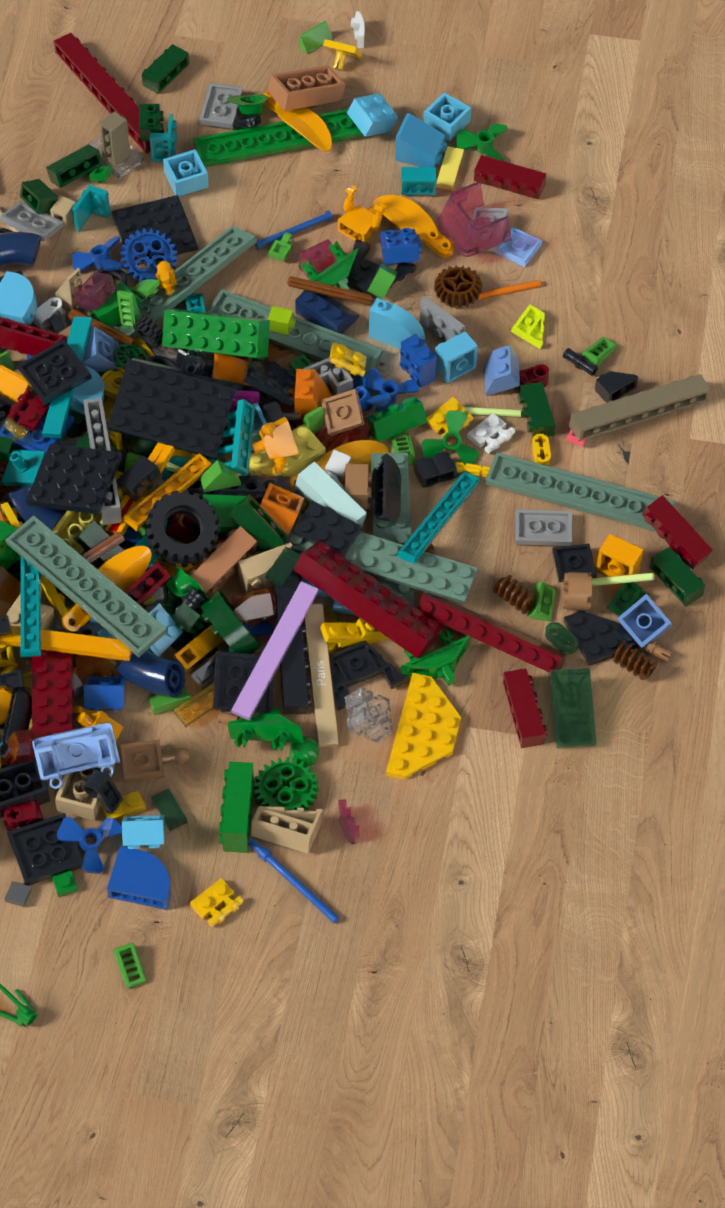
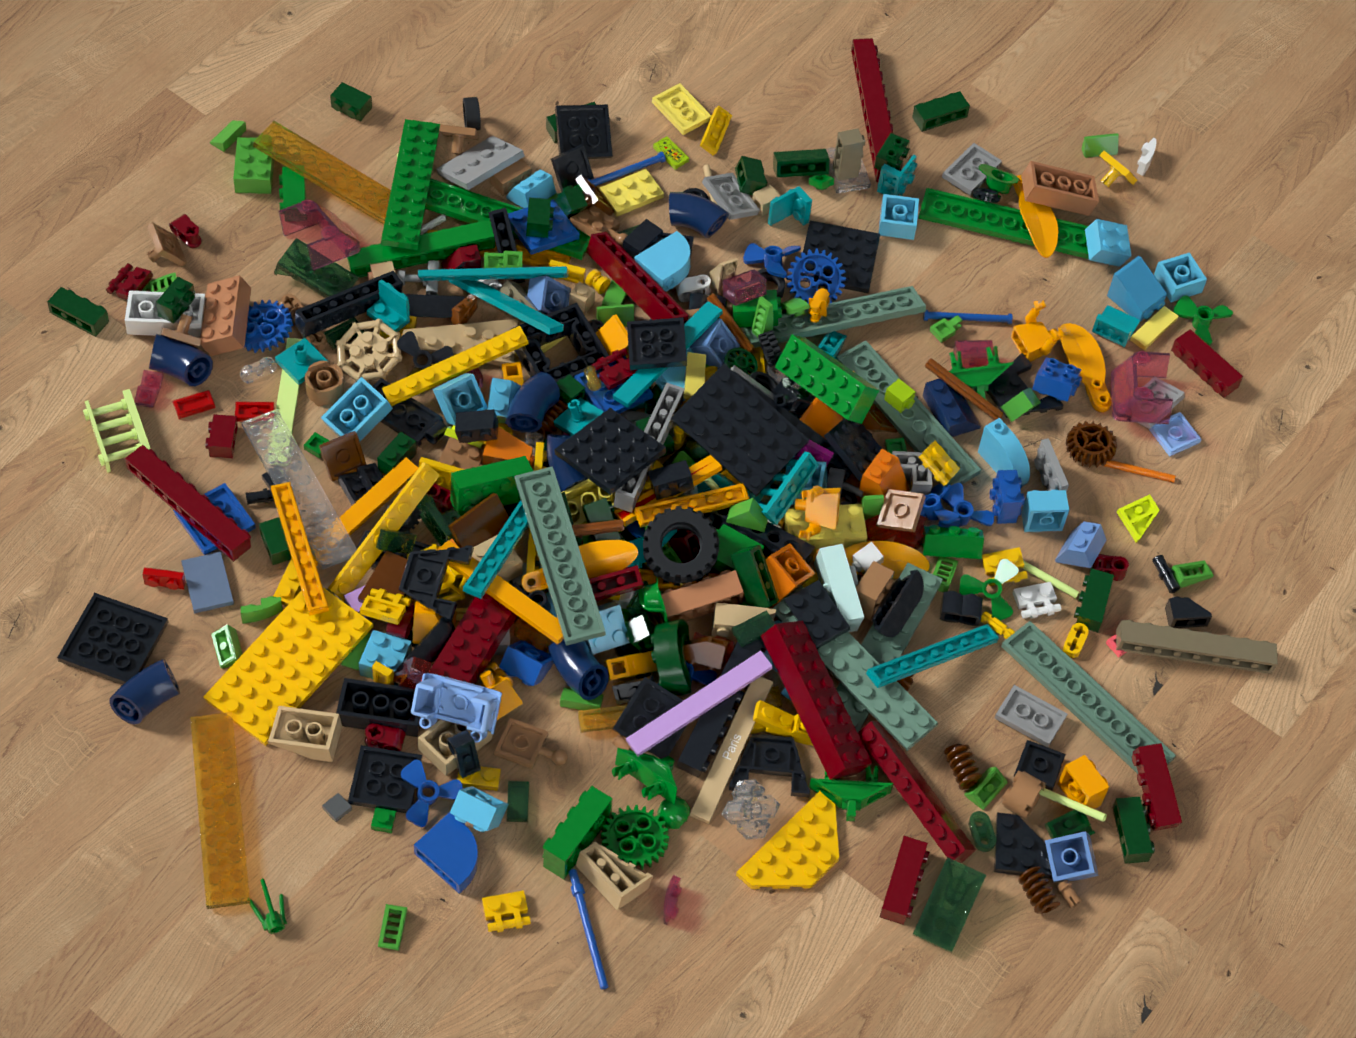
camera: 25 degrees right, 0 degrees up
(102, 384) = (694, 373): none -> light yellow tile
(193, 598) = (653, 616): black wheel -> none

